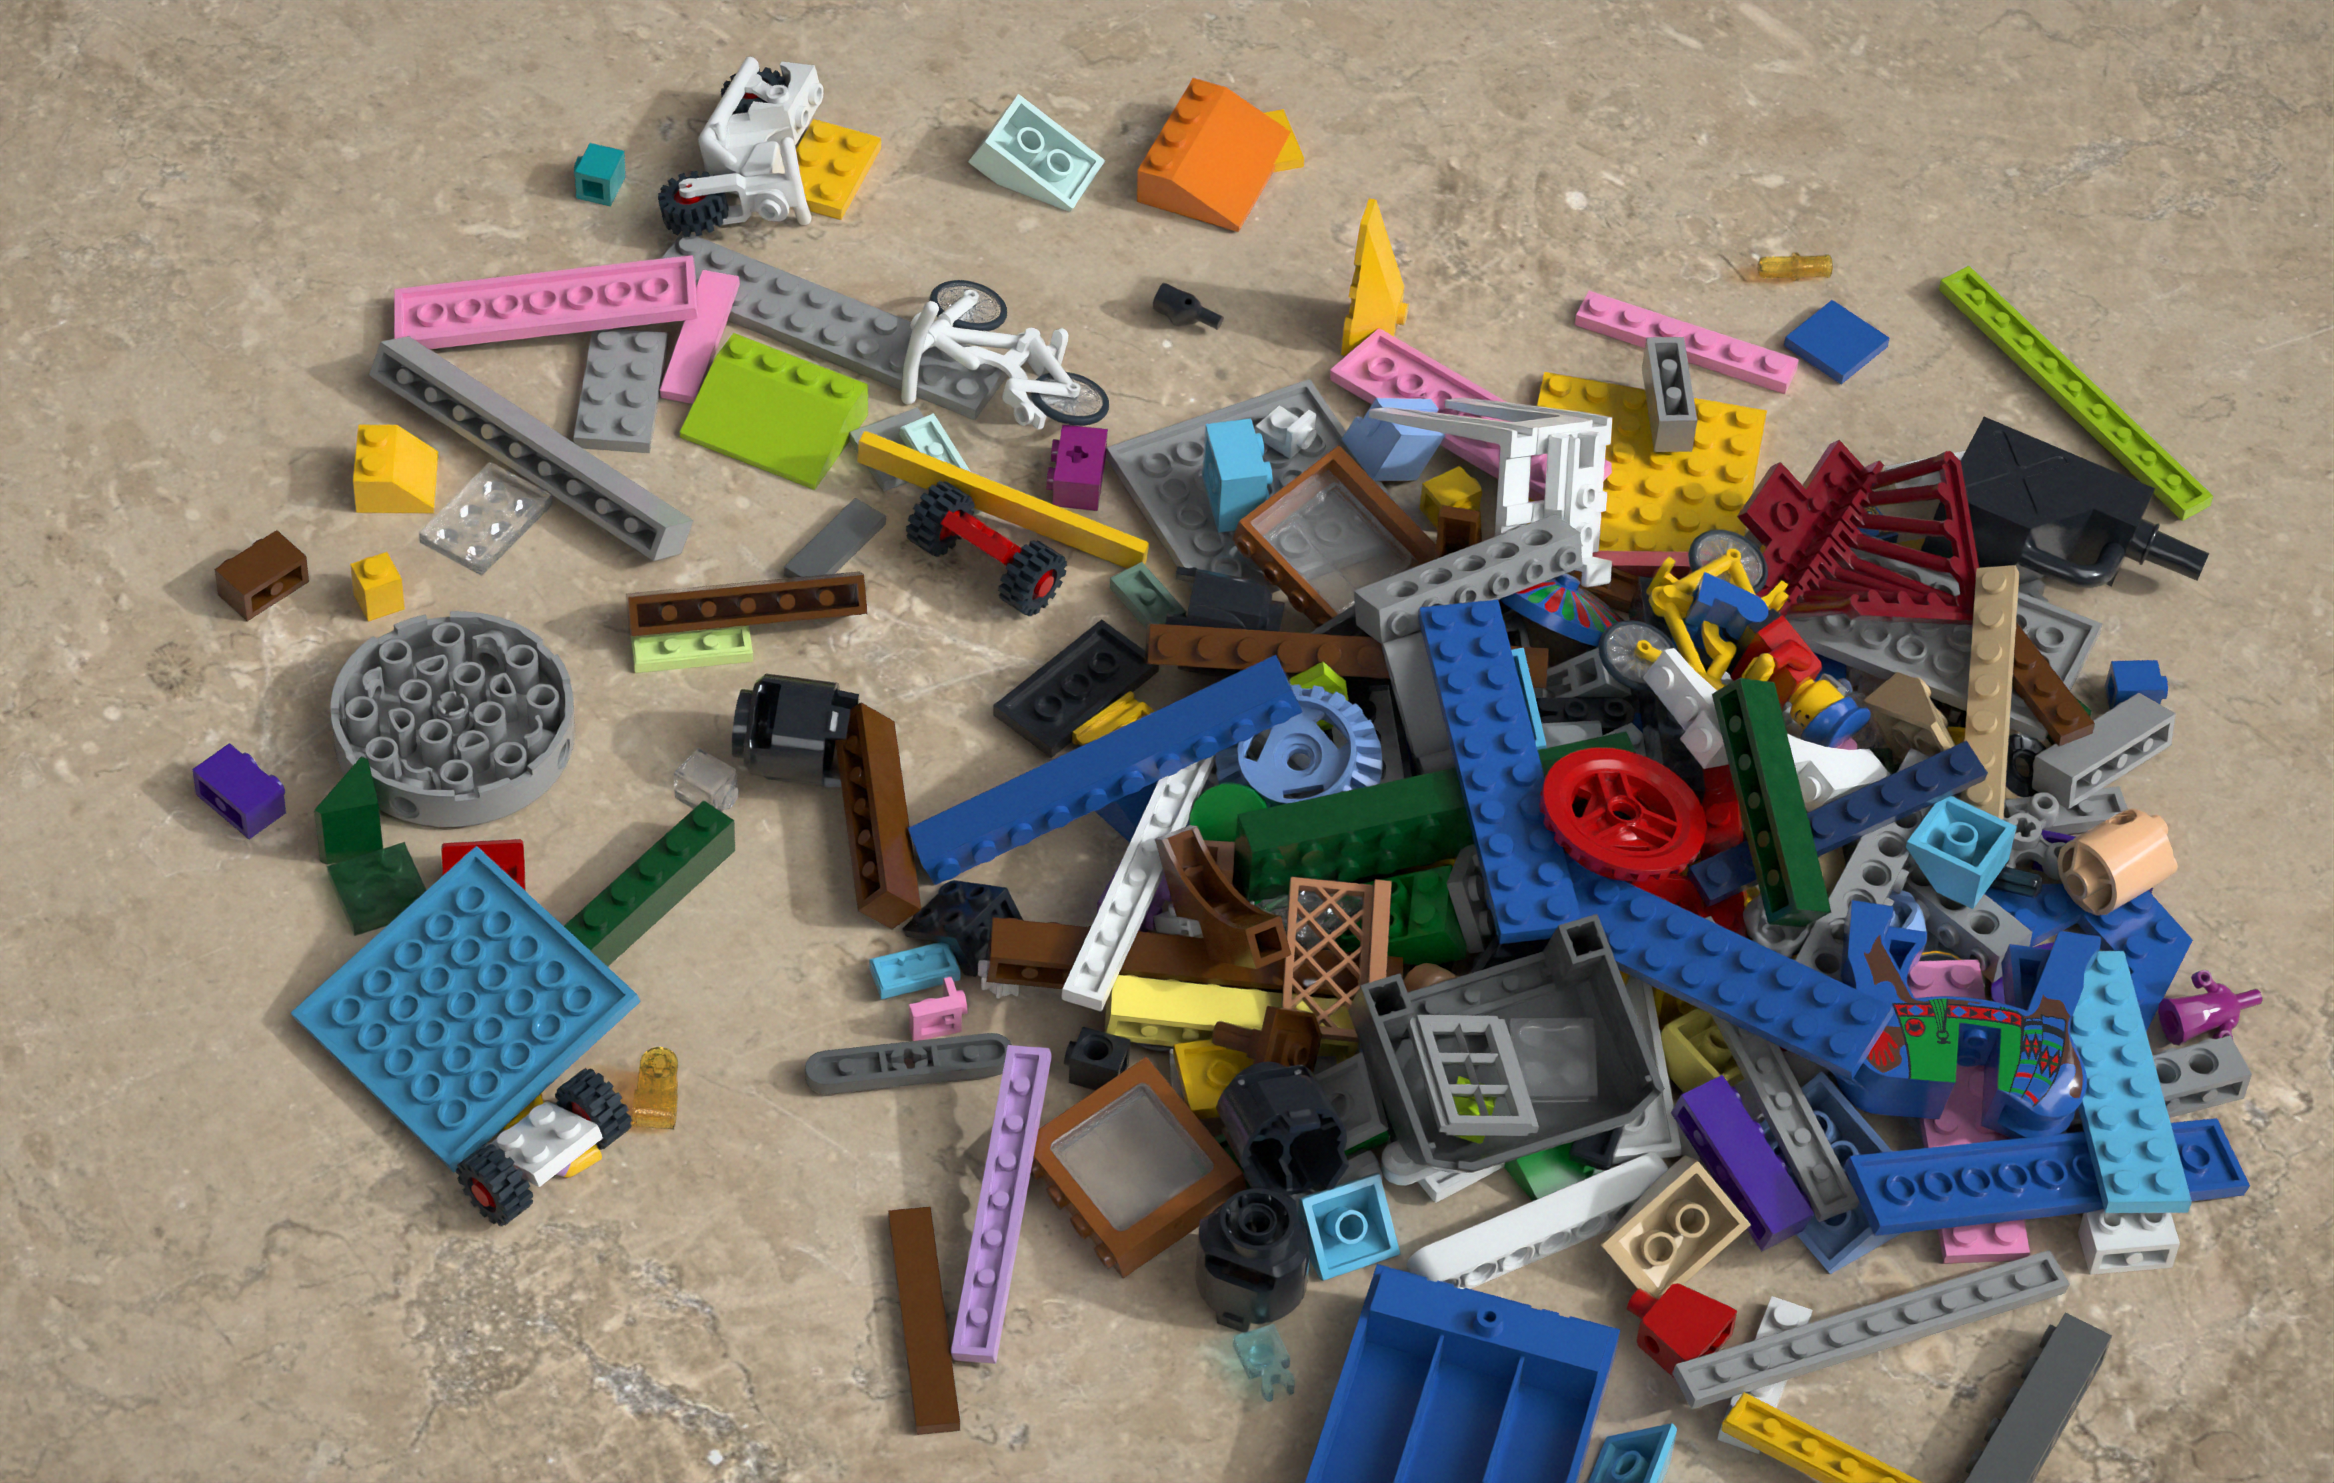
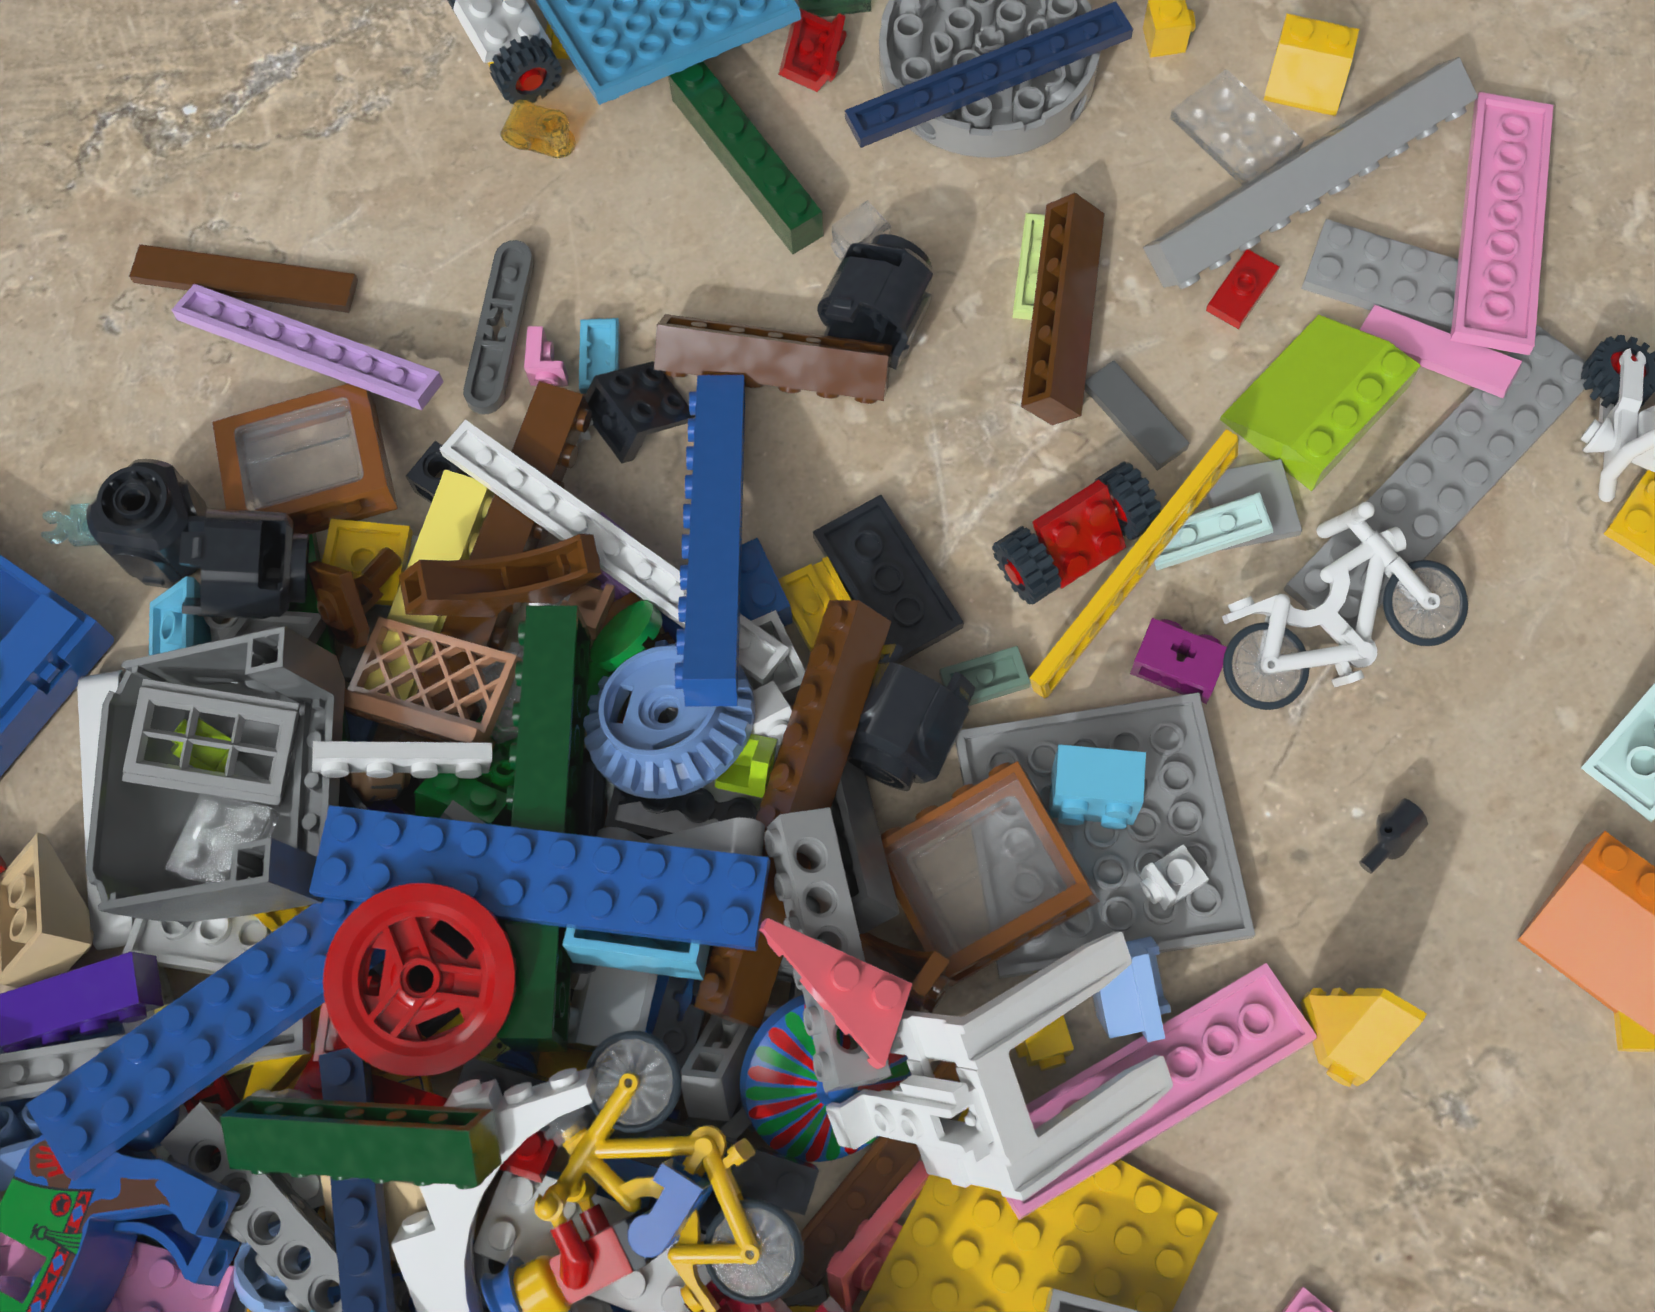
camera: 115 degrees right, 20 degrees up
(512, 683) = (988, 74): none -> dark blue plate
(676, 489) = (1242, 288): none -> red plate
(1427, 927) = (385, 758): none -> white plate
(1504, 538) = (857, 994): none -> coral wing

